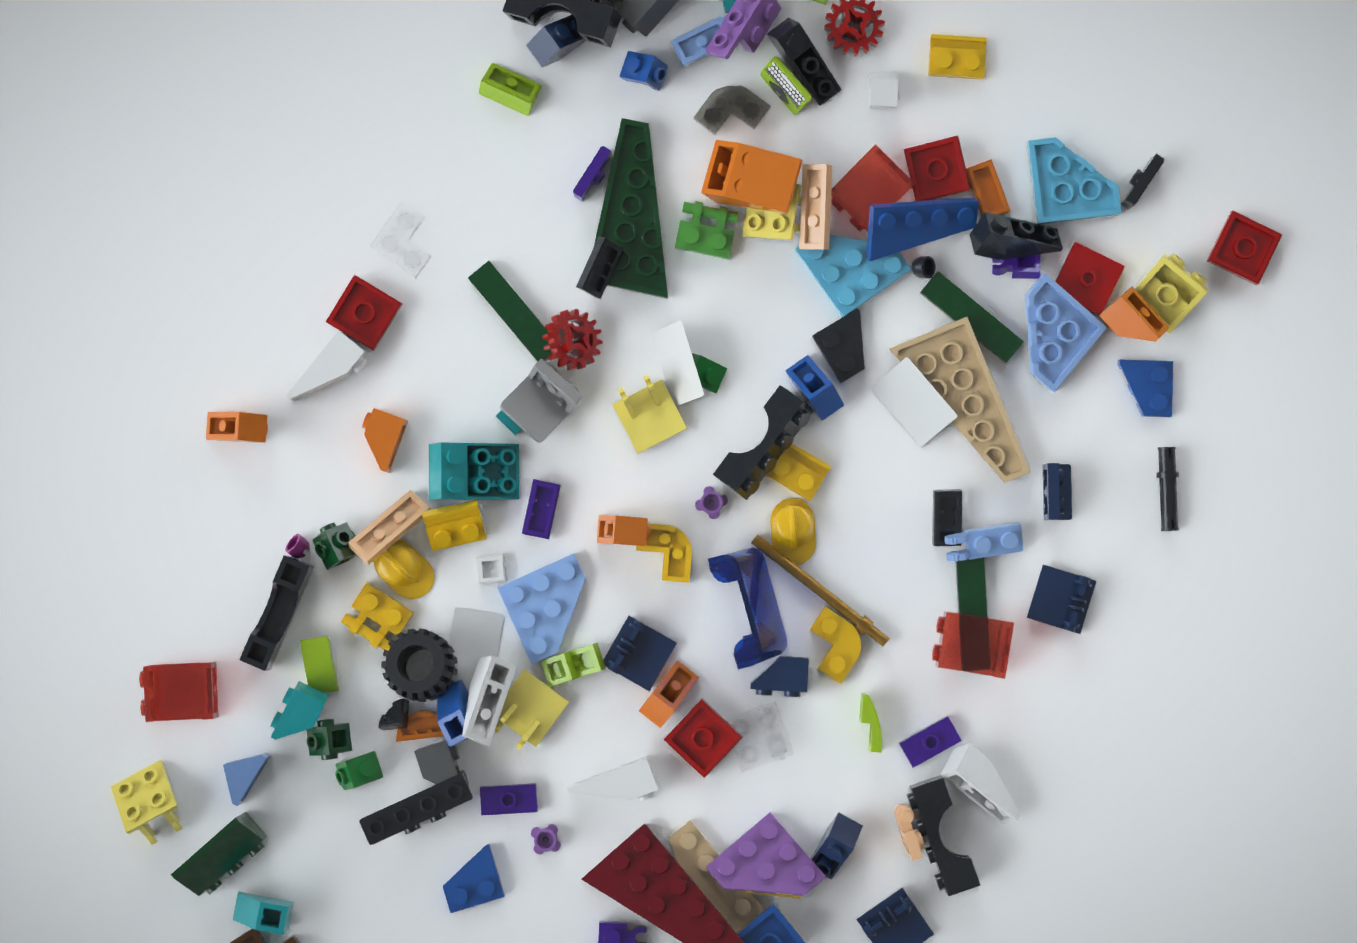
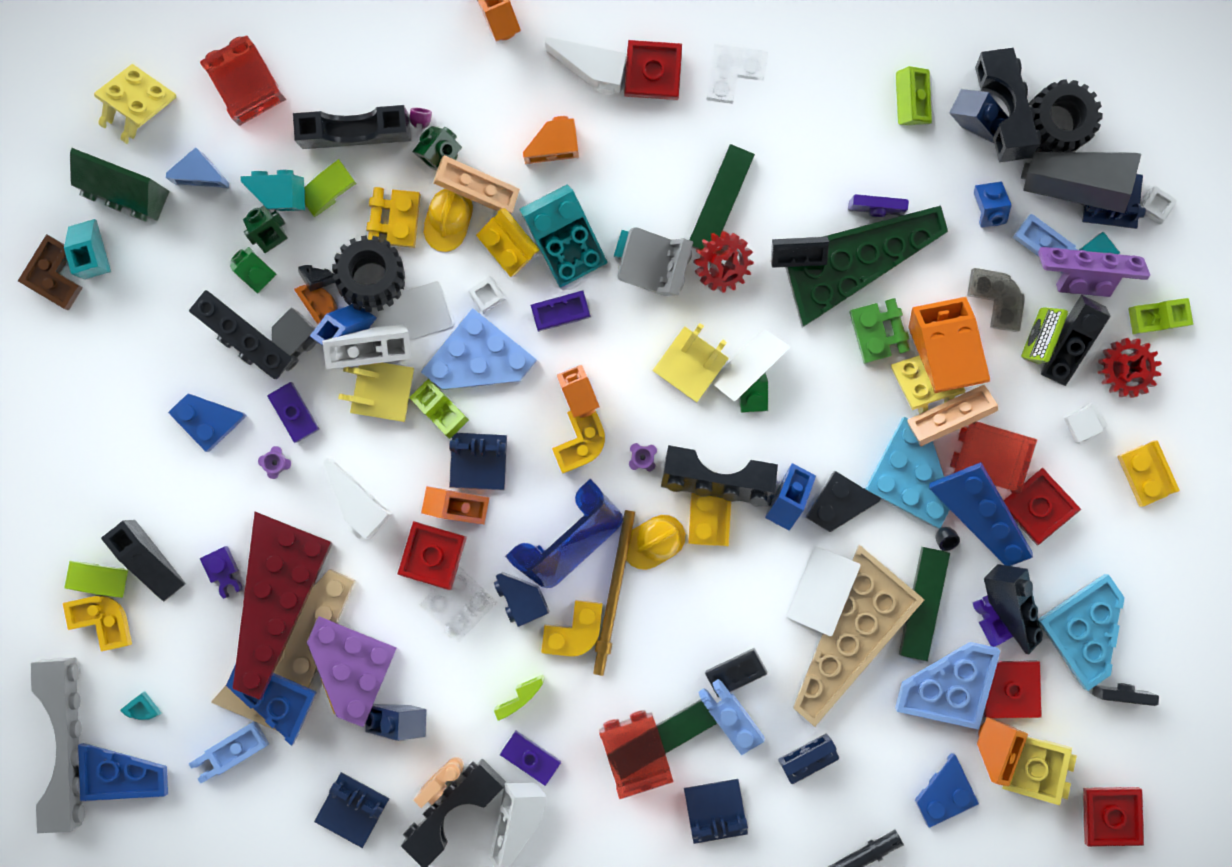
camera: 60 degrees right, 0 degrees up
(987, 188) = (1046, 559): orange tile -> none

